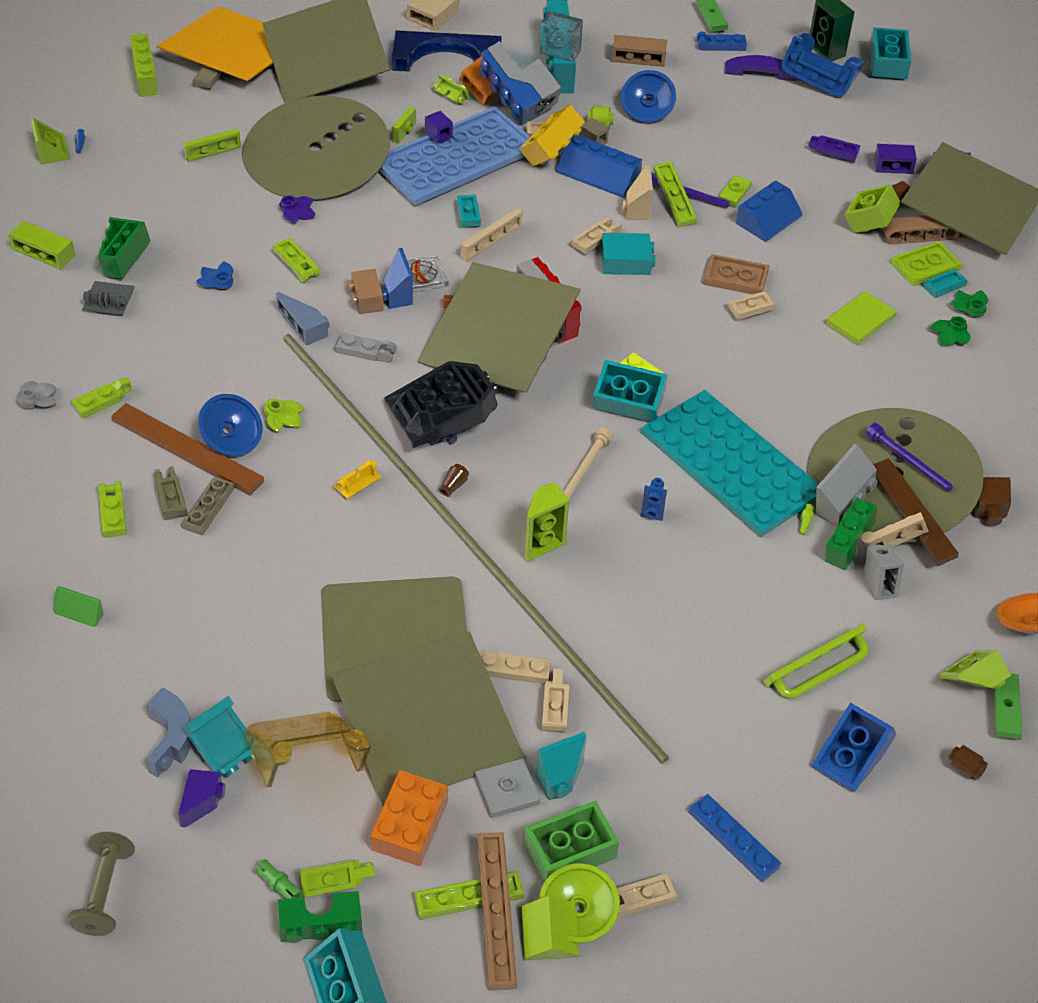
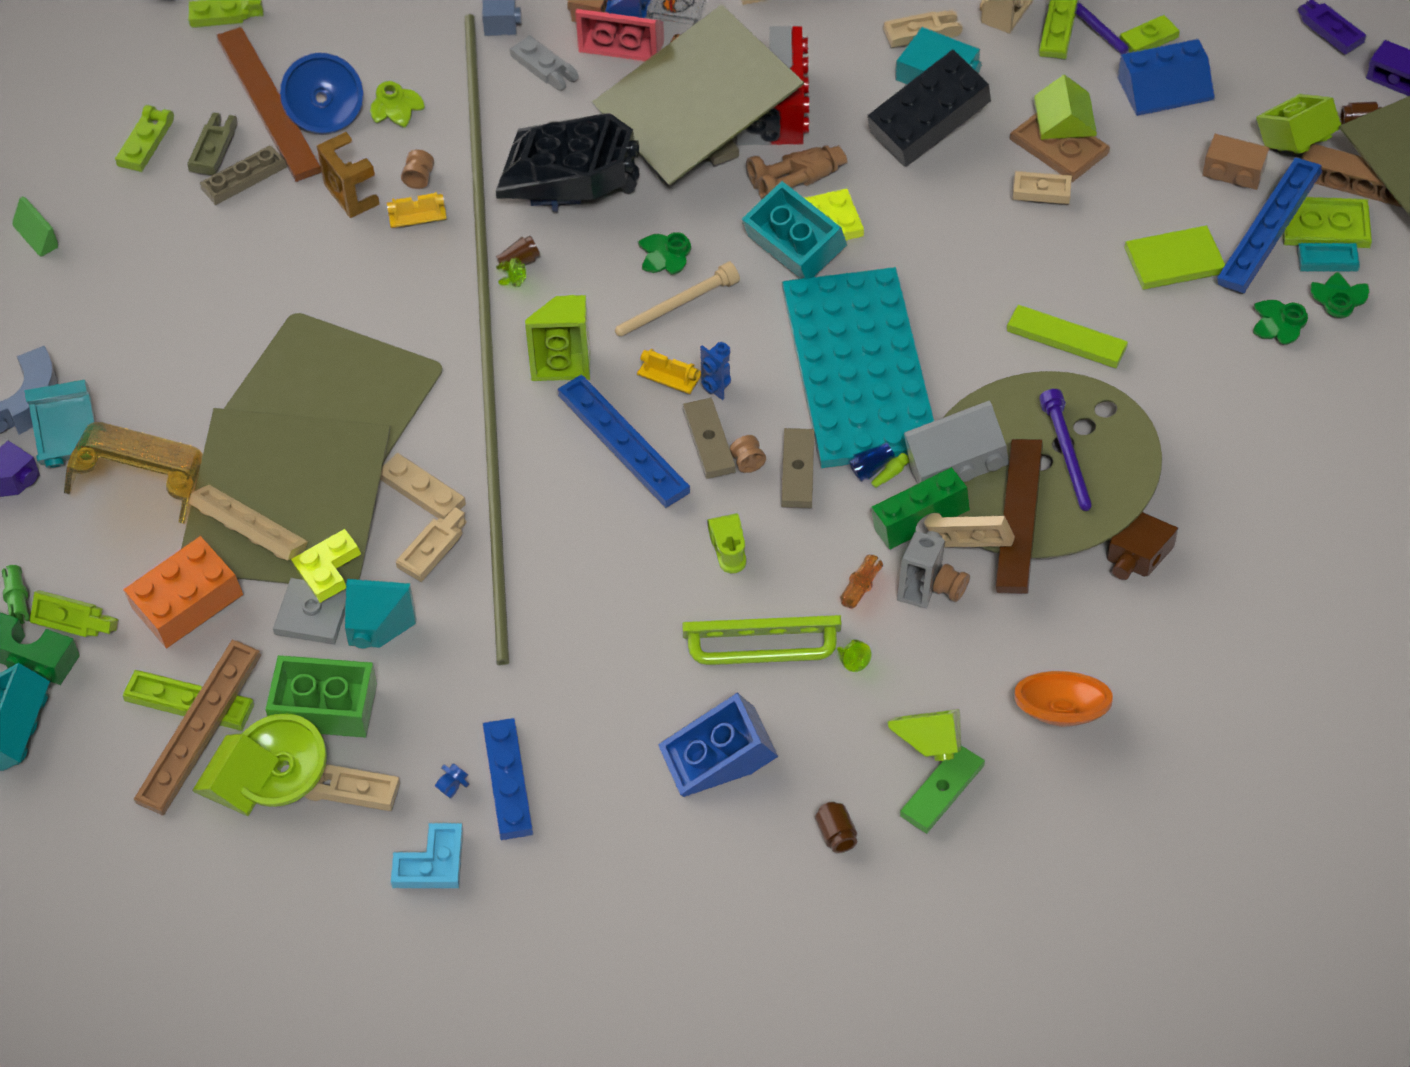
camera: 35 degrees right, 5 degrees up
(293, 478) = (342, 178): none -> pearl gold panel
(337, 451) = (417, 169): none -> medium nougat wheel
(407, 309) = (618, 35): none -> coral slope
(425, 746) = (247, 522): none -> tan plate
(463, 494) = (516, 272): none -> clear neon green plate
(492, 751) = (319, 564): none -> neon yellow plate
(549, 439) = (665, 252): none -> green plate
(594, 350) = (802, 167): none -> medium nougat piece
(612, 516) = (669, 372): none -> yellow hinge
(625, 574) = (624, 441): none -> blue plate
(651, 280) = (929, 108): none -> black brick
(679, 547) = (709, 438): none -> dark tan tile
(702, 853) = (450, 782): none -> blue plate
(713, 546) = (748, 454): none -> medium nougat wheel
(727, 253) = (1064, 110): none -> lime slope
(740, 920) = (437, 866): none -> medium azure plate
(748, 608) = (728, 542): none -> lime piece
(751, 542) = (798, 468): none -> dark tan tile
(793, 518) = (869, 462): none -> clear blue cone
(839, 390) = (1067, 336): none -> lime tile
(849, 597) = (860, 581): none -> clear orange axle
(850, 246) = (1235, 161): none -> medium nougat brick
(885, 646) = (855, 655): none -> clear neon green plate
(903, 276) = (1269, 225): none -> blue plate
(909, 573) = (951, 582): none -> medium nougat wheel

